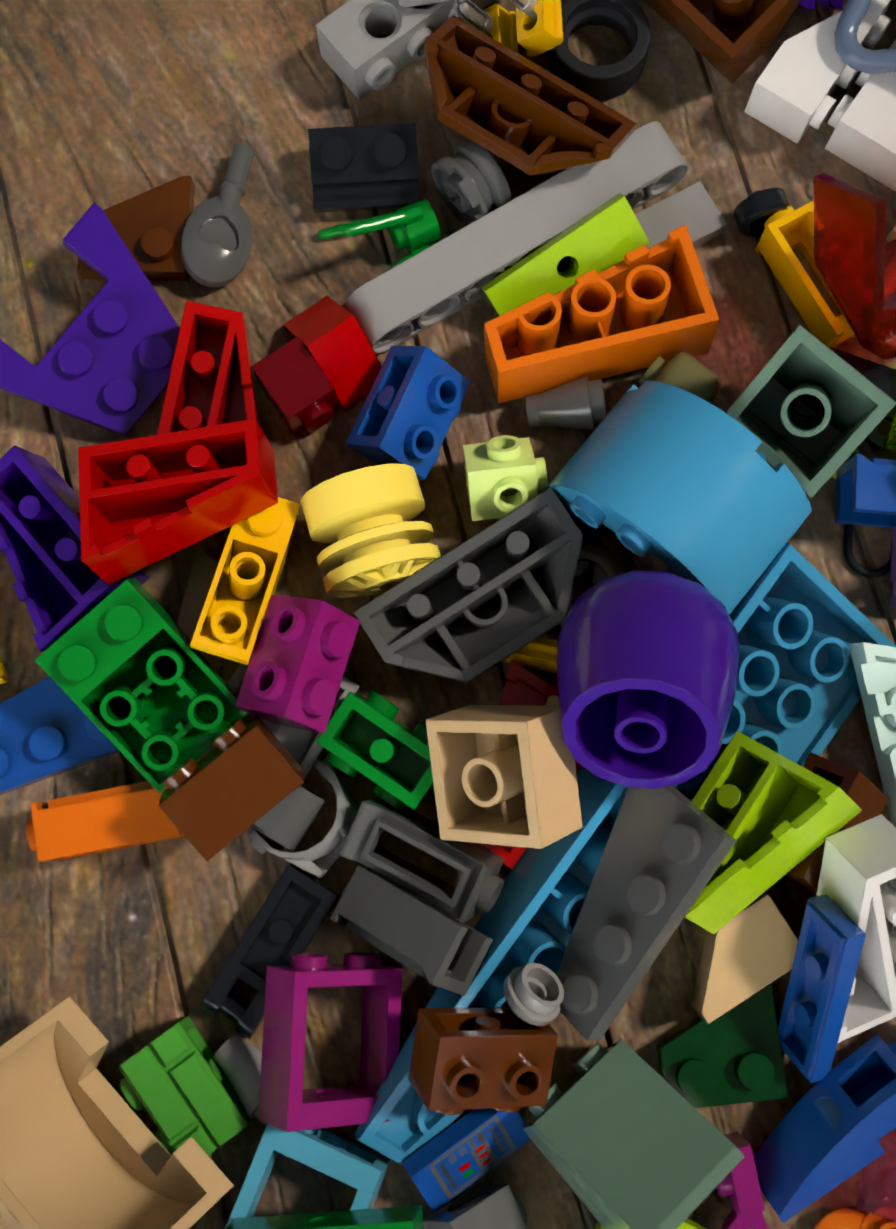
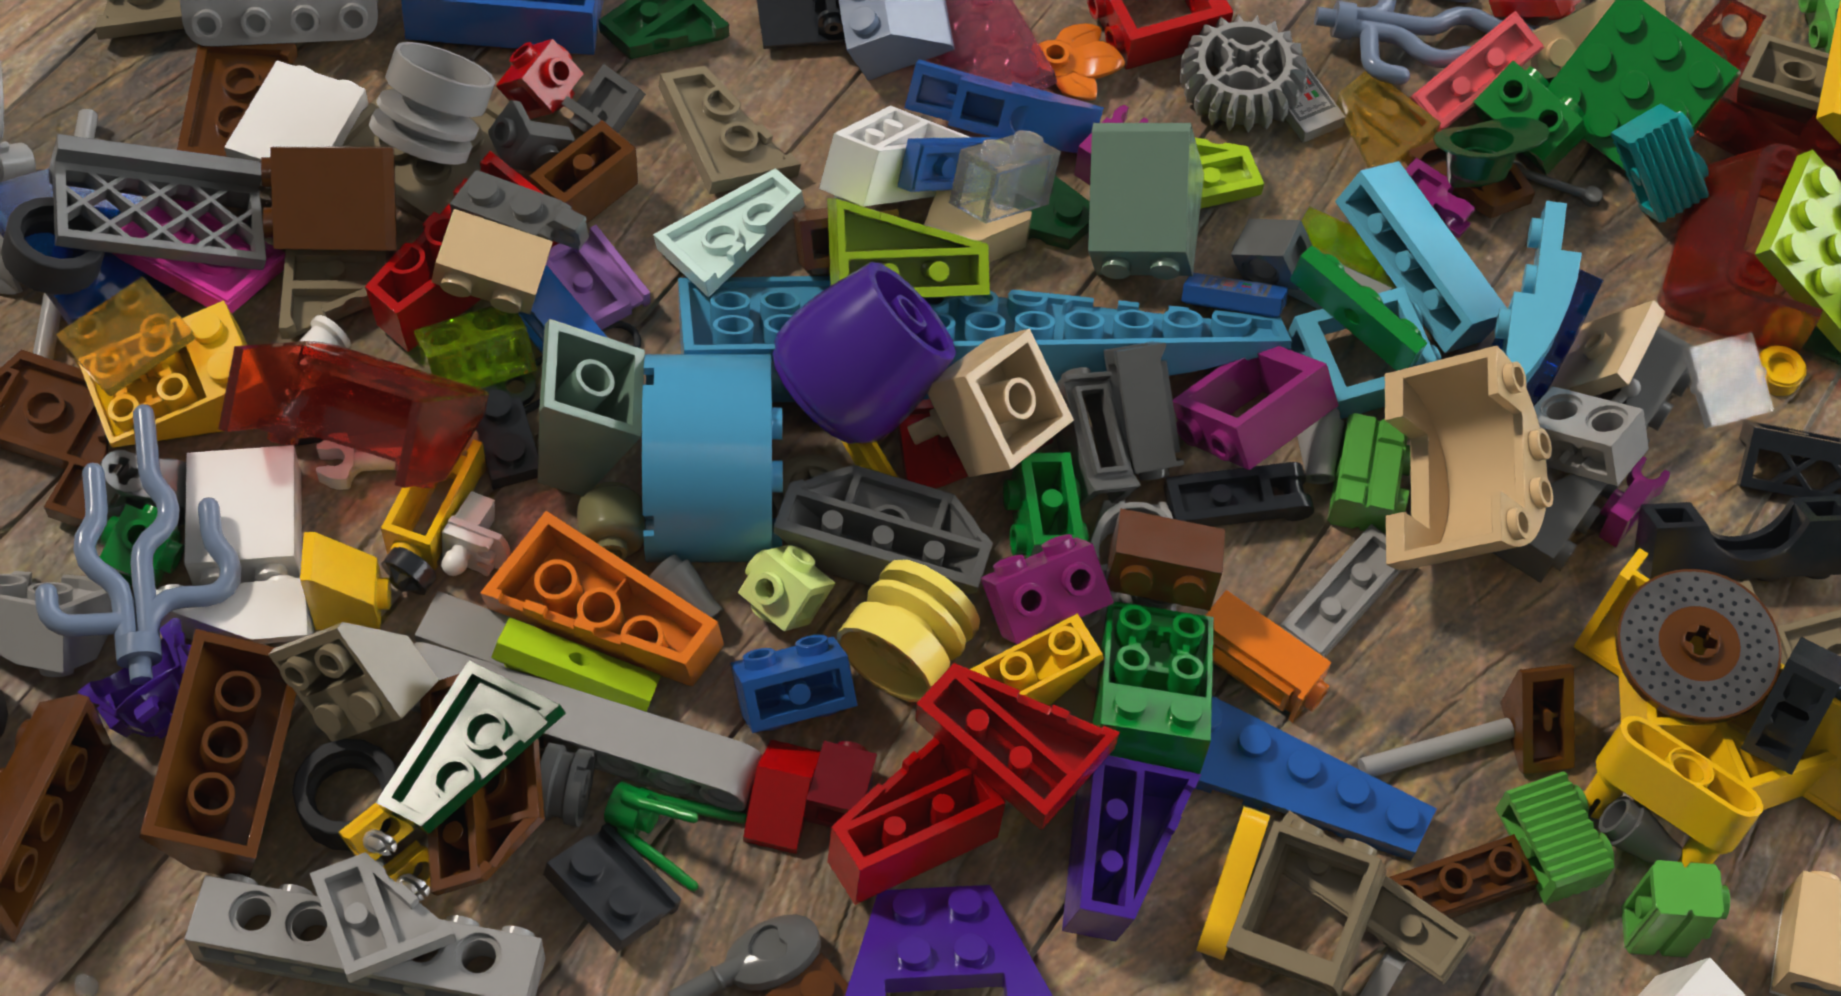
camera: 140 degrees left, 20 degrees down
(110, 956) = (1342, 594): none -> light grey tile
(480, 1060) = (1177, 304): reddish brown brick -> none
(534, 993) = (1112, 303): light grey plate -> none
(540, 90) = (465, 744): none -> wing
(640, 893) = (999, 284): dark grey wing -> none
(676, 65) = (354, 677): none -> dark tan slope
(761, 276) = (470, 542): none -> white piece
(761, 1019) = (1004, 176): none -> clear brick
(786, 135) = (342, 583): none -> yellow slope

